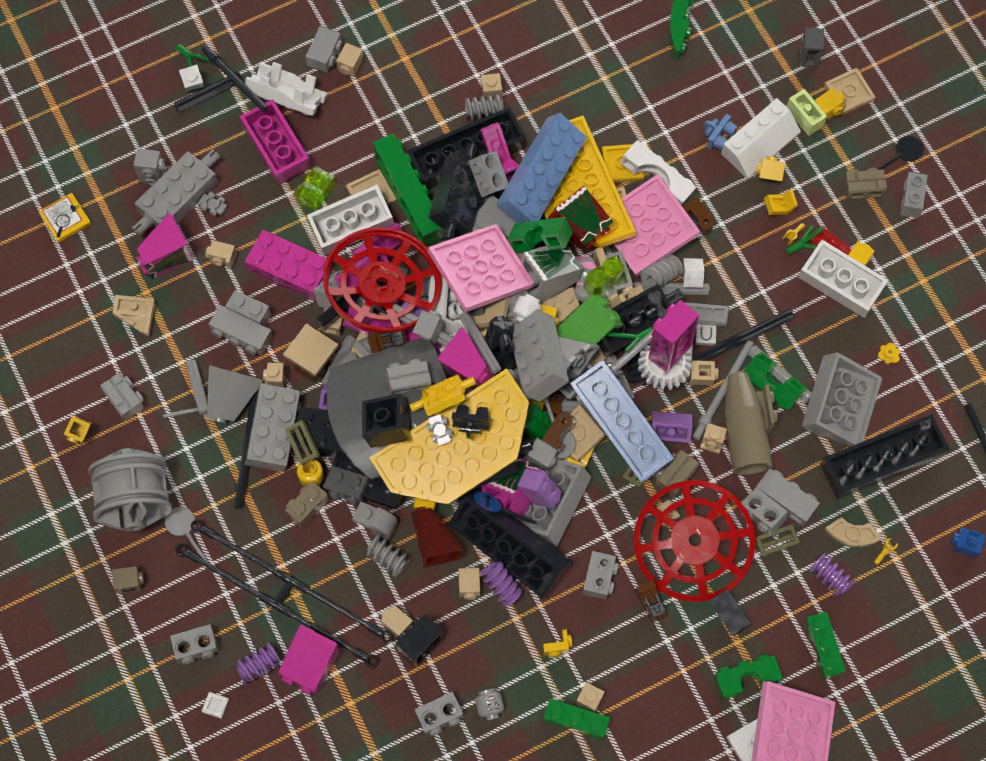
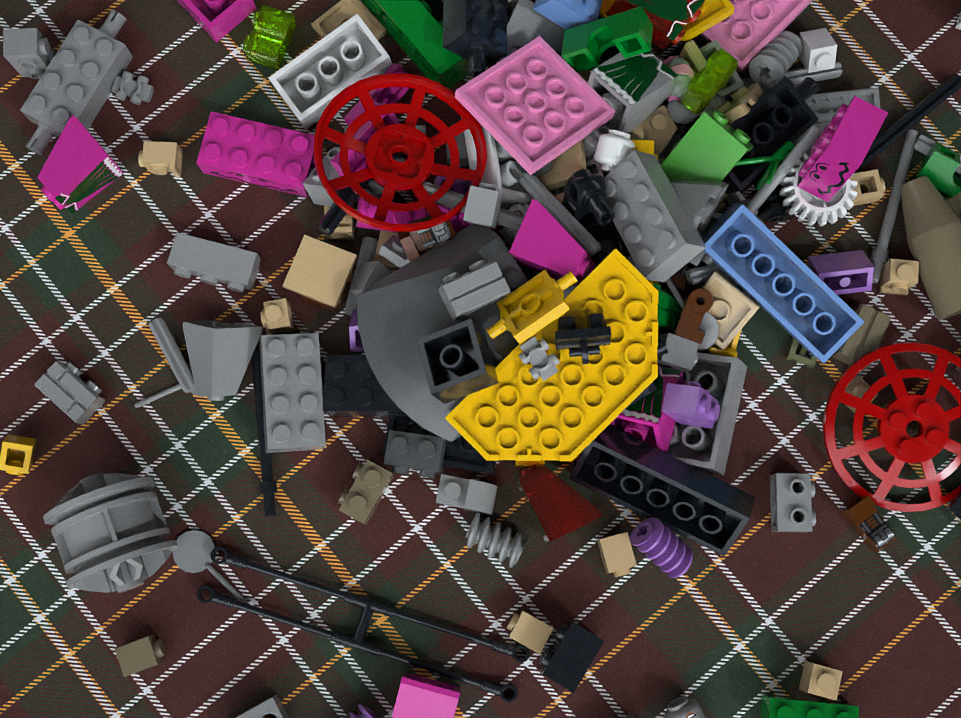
camera: 15 degrees left, 10 degrees up
(135, 312) = (60, 266): tan wing -> none
(249, 308) = (218, 228): light grey brick -> none
(309, 457) = (348, 401): olive tile -> none
(310, 472) = (360, 445): yellow head -> none
(491, 504) = (628, 444): piece -> none
(555, 650) = (756, 621): yellow bracket -> none

